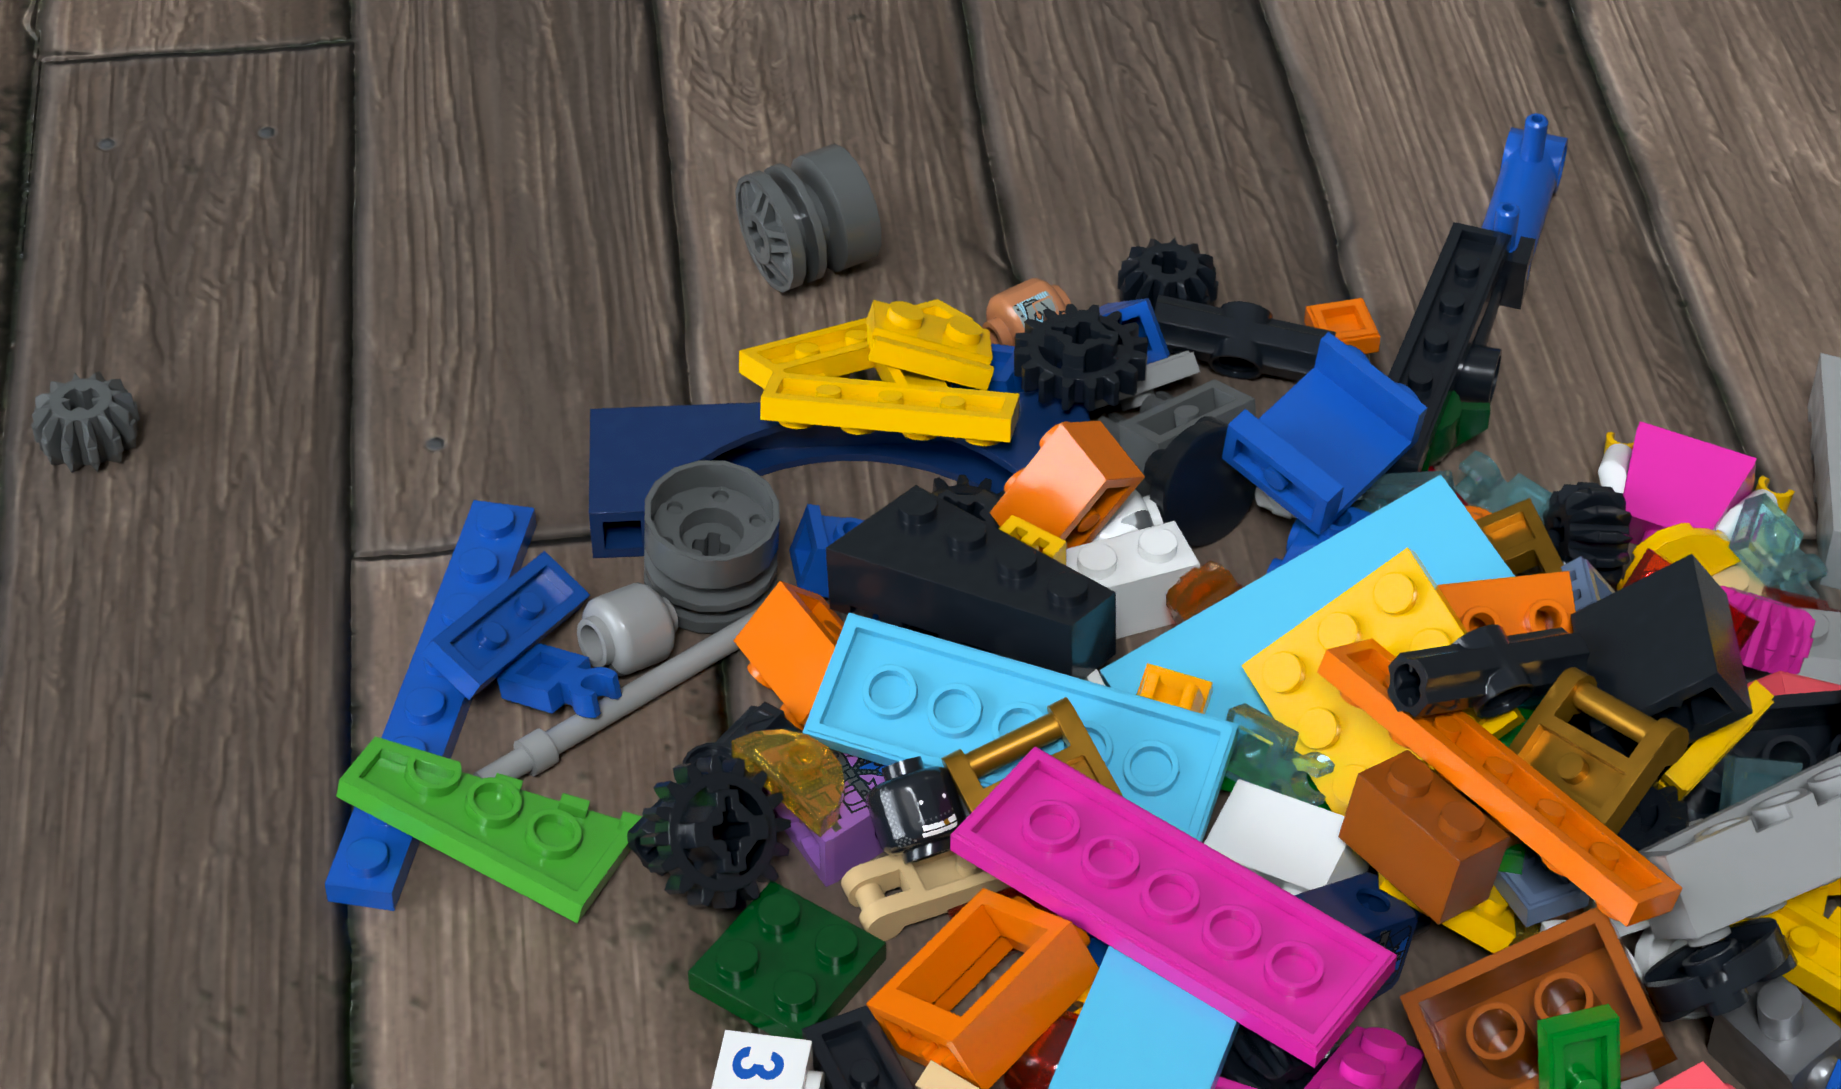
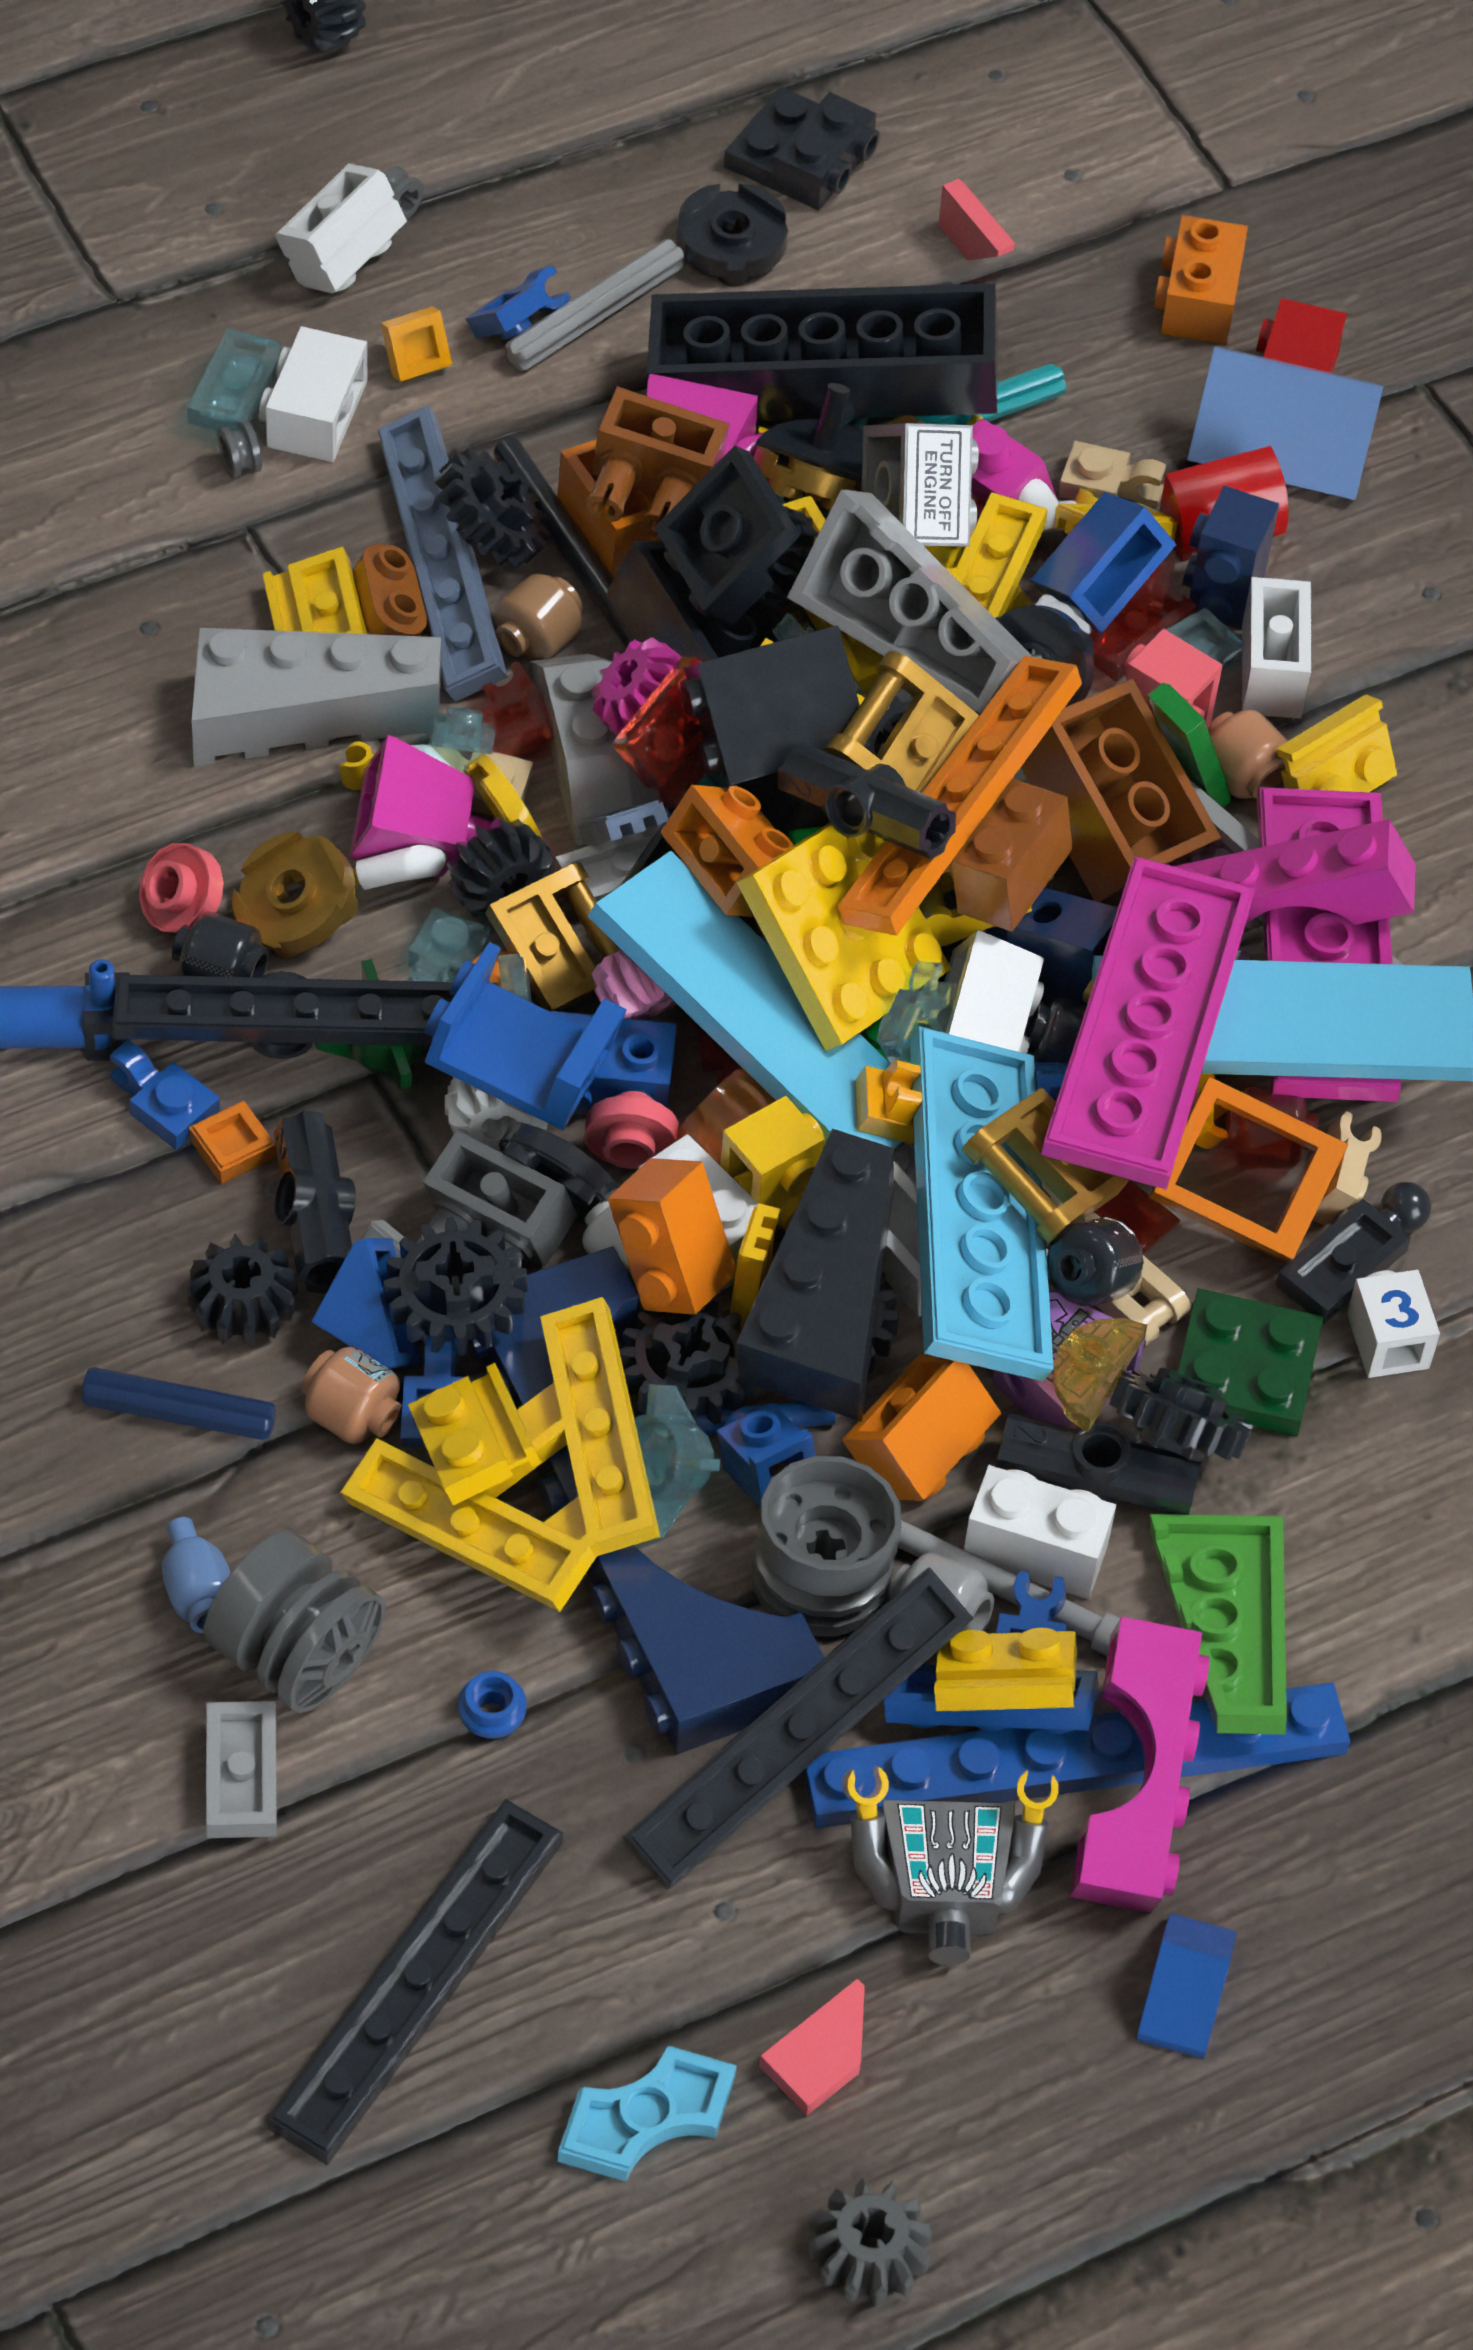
camera: 115 degrees left, 10 degrees up
(182, 696) = (1186, 1985): none -> blue slope
(269, 453) = (820, 2051): none -> coral tile
(287, 363) = (621, 2124): none -> medium azure tile
(378, 555) = (947, 1863): none -> flat silver torso
(432, 703) = (1151, 1682): none -> dark pink arch
(484, 258) = (415, 1982): none -> black tile
(513, 620) = (1006, 1670): none -> yellow plate
(549, 491) = (797, 1728): none -> black tile
(660, 716) = (1040, 1529): none -> white brick
(692, 342) = (492, 1688): none -> blue plate
(695, 192) = (241, 1769): none -> light grey plate
(860, 481) = (674, 1453): none -> clear light blue piece
(907, 205) = (192, 1572): none -> medium blue plant
(1078, 234) = (178, 1403): none -> dark blue axle
(1146, 594) = (773, 1155): none -> yellow brick
(1241, 545) = (629, 1129): none -> coral plate
(1395, 295) = (162, 1100): none -> blue plate
(1543, 344) = (220, 948): none -> black head
(1604, 402) = (319, 910): none -> pearl gold plate
(1631, 337) = (180, 887): none -> coral plate

